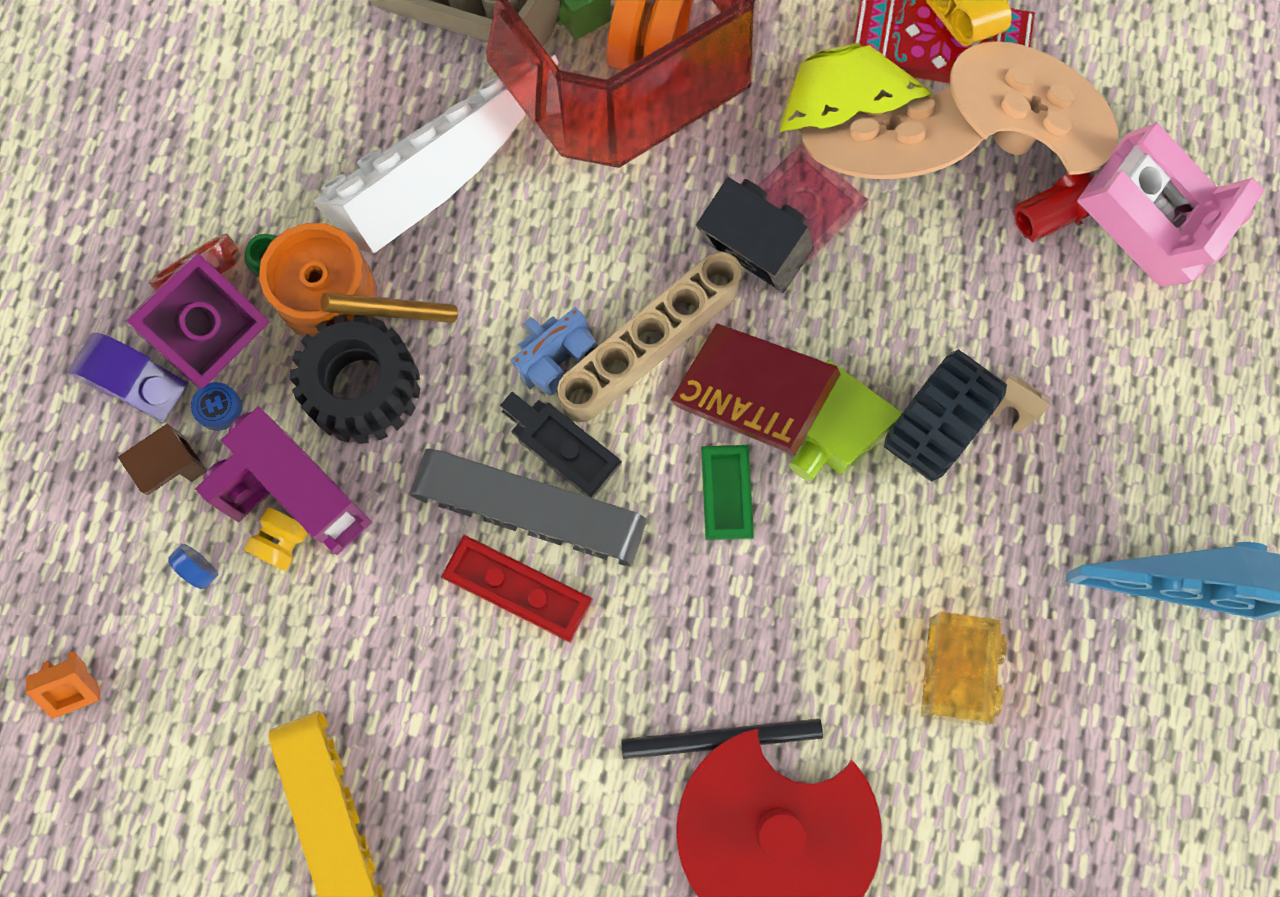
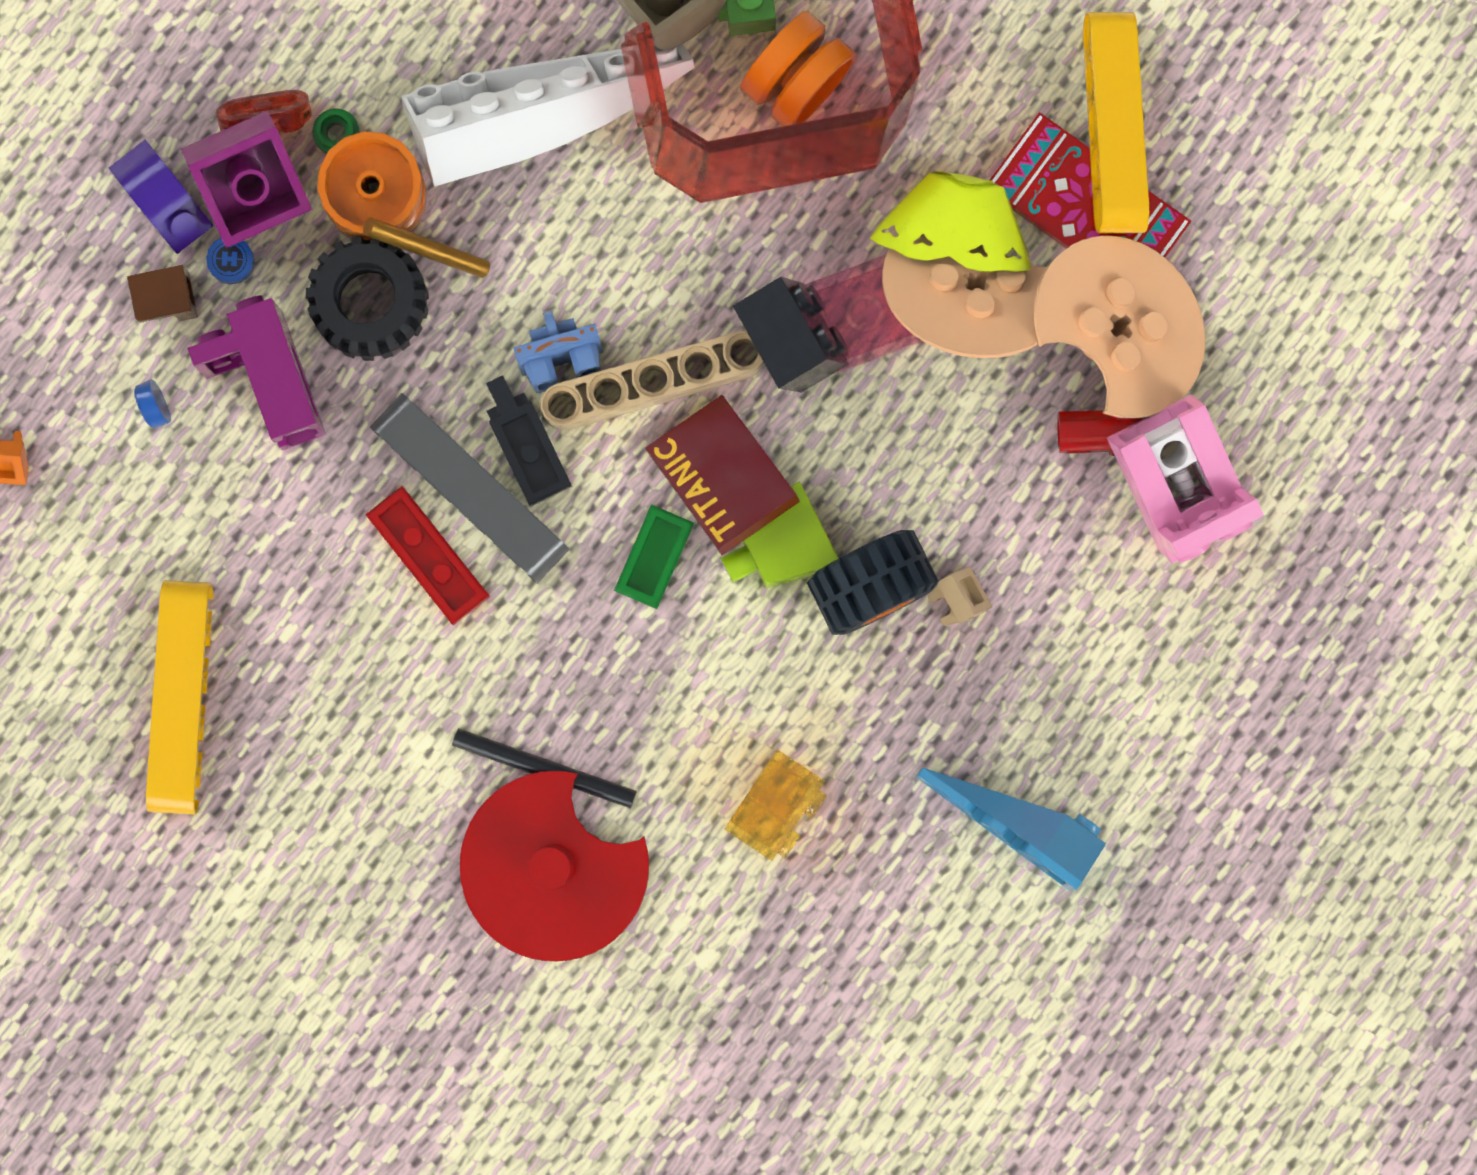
camera: 25 degrees right, 10 degrees up
(278, 527) = (244, 407): yellow wheel -> none

